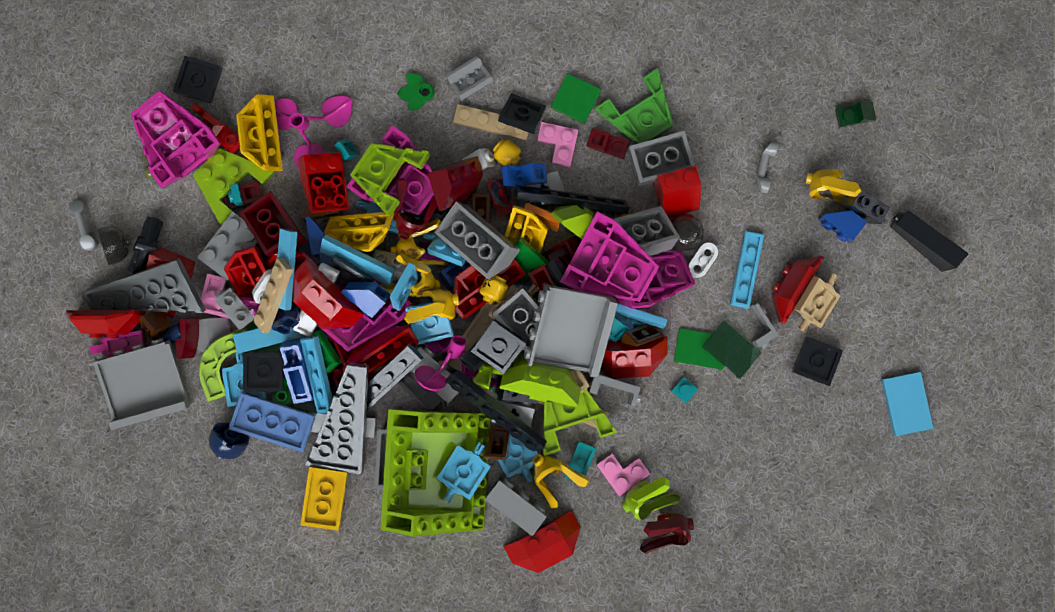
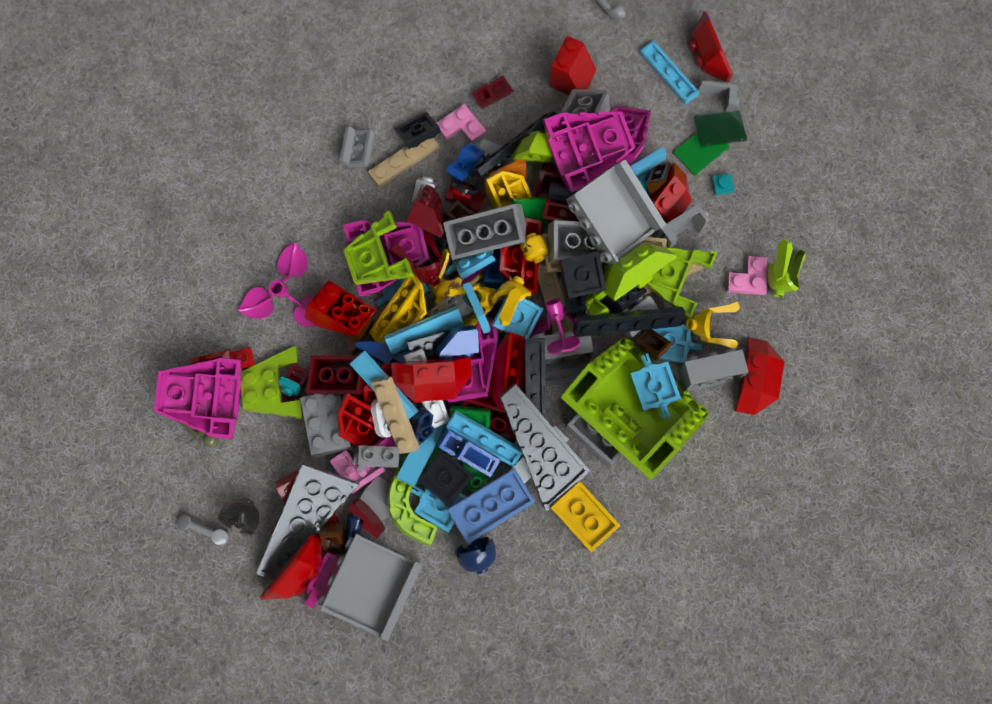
camera: 50 degrees left, 10 degrees down
(145, 244) = (263, 490): black piece -> none
(197, 79) = (172, 345): black plate -> none
(260, 133) = (259, 327): yellow wedge -> none
(347, 149) = (334, 277): teal plate -> none
(413, 92) = (329, 196): green plate -> none
(507, 153) = (436, 165): yellow head -> none
(575, 98) = (439, 88): green tile -> none
(582, 458) = (715, 297): teal plate -> none
(645, 119) = (498, 52): bright green wing -> none
(659, 157) = (534, 63): light grey brick -> none
(667, 523) = (820, 269): dark red piece -> none
(690, 232) = (608, 83): clear smoke cylinder -> none
(702, 260) = (637, 96): white plate -> none
(817, 302) = (735, 41): tan plate -> none
(817, 361) = (778, 77): black plate -> none
(907, 404) = (859, 43): medium azure tile -> none

